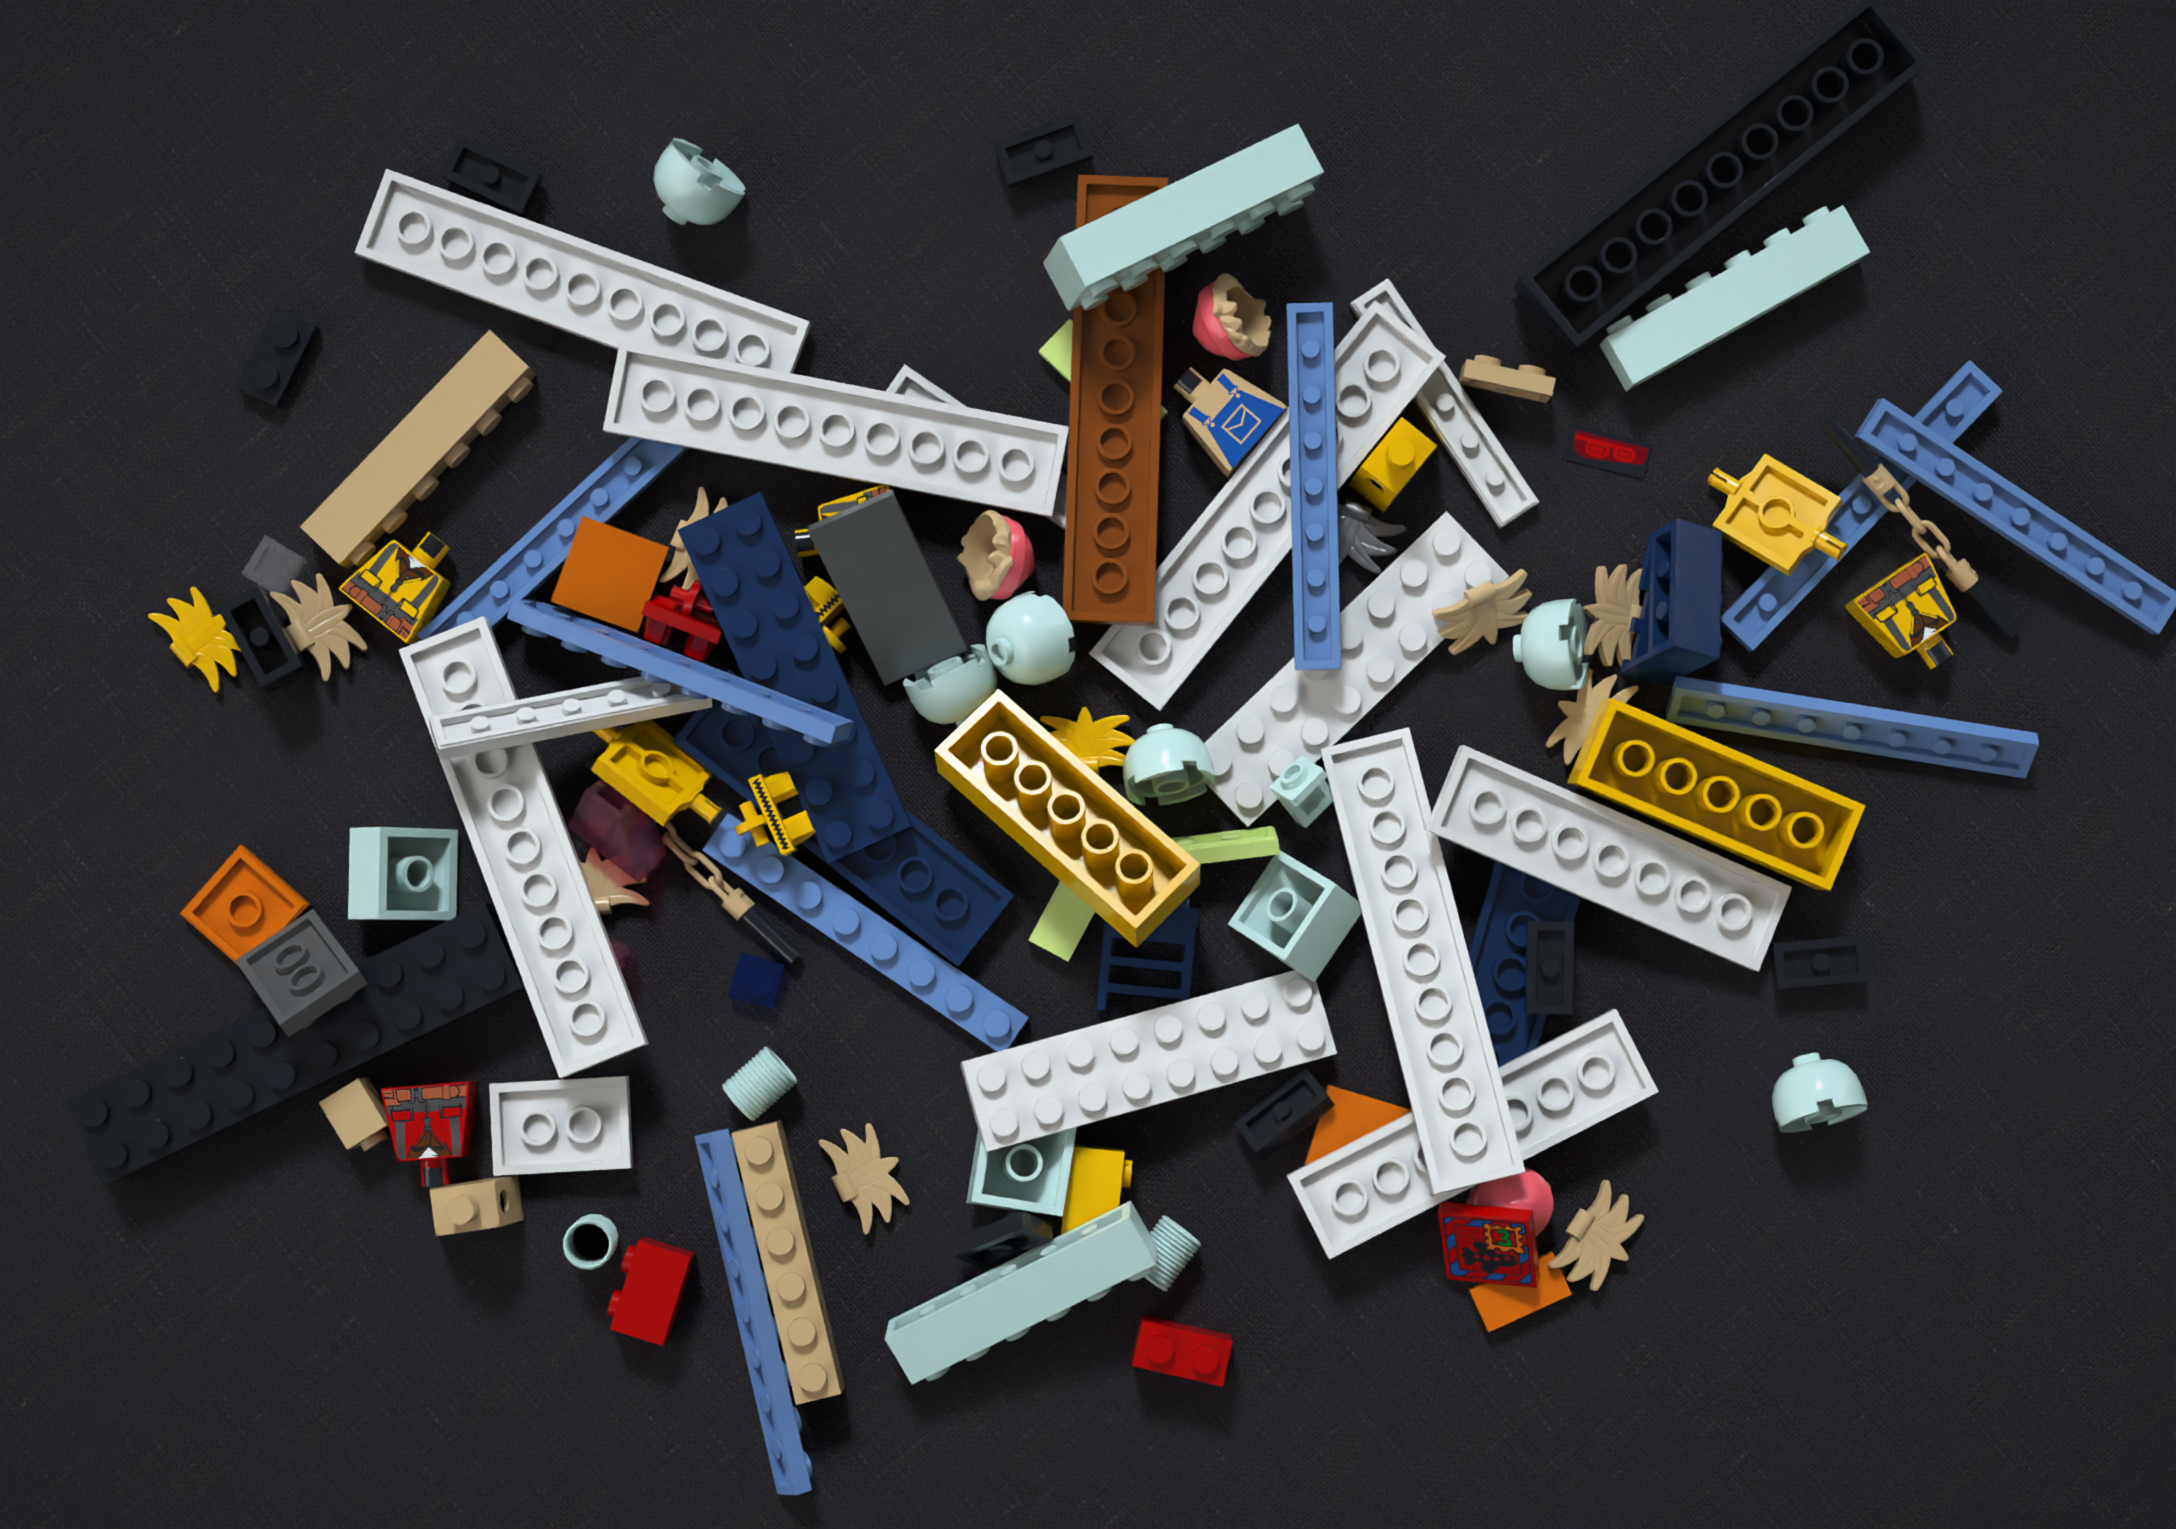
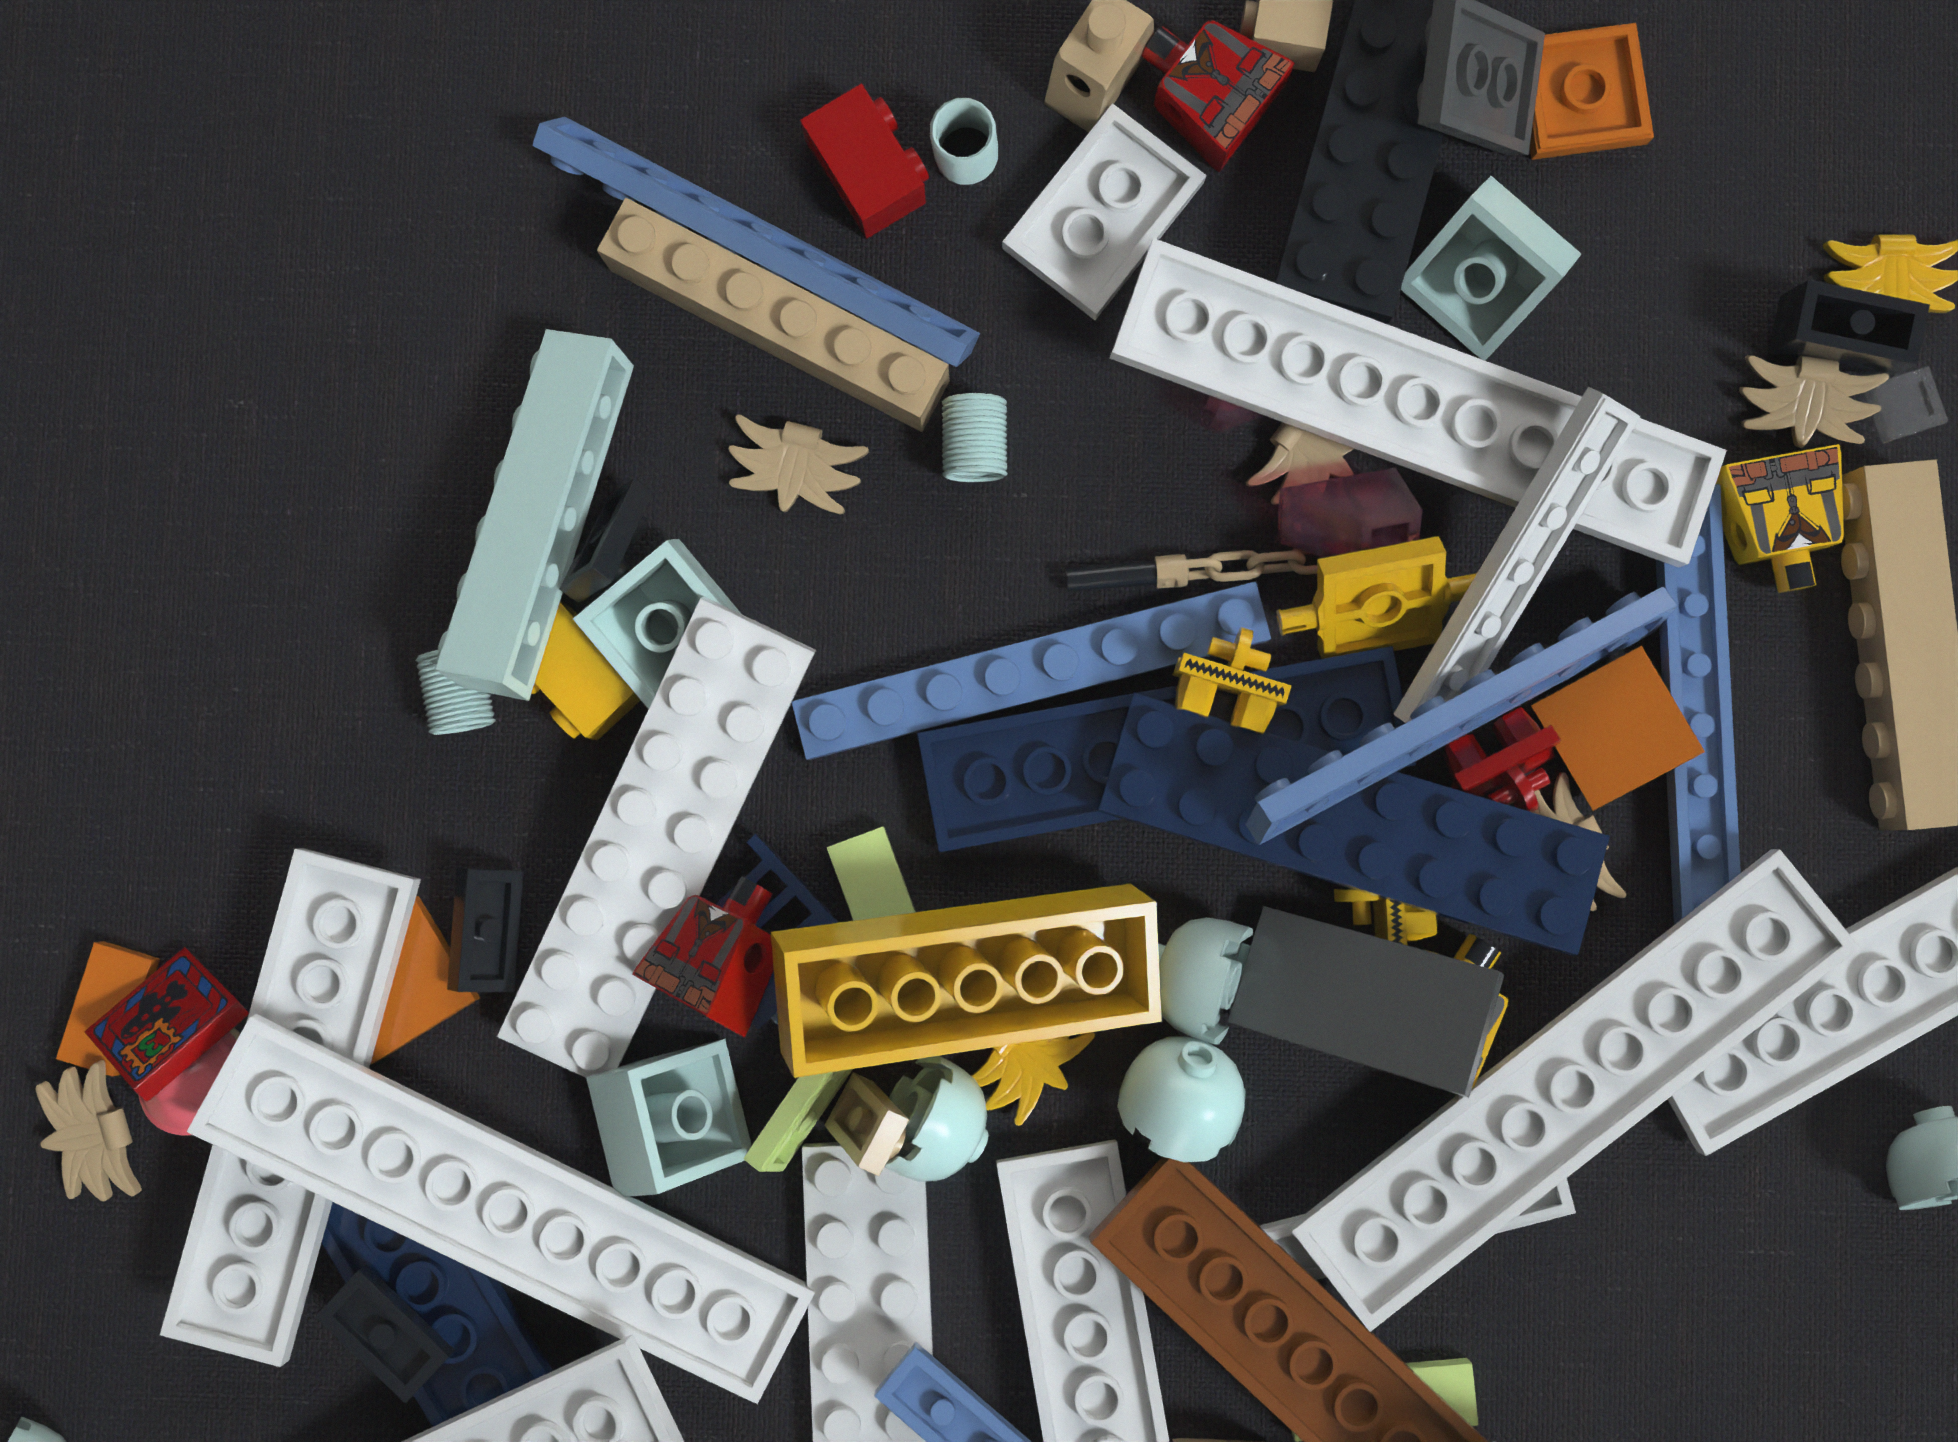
camera: 130 degrees right, 0 degrees up
(757, 980) = (1079, 525): clear blue plate -> none
(996, 556) = (1298, 1136): tan hair -> none
(1181, 968) = (715, 957): none -> red torso
(1182, 1350) = (344, 623): red brick -> none
(1199, 802) = (867, 1124): none -> tan plate
(1303, 791) = (787, 1238): light aqua bracket -> none

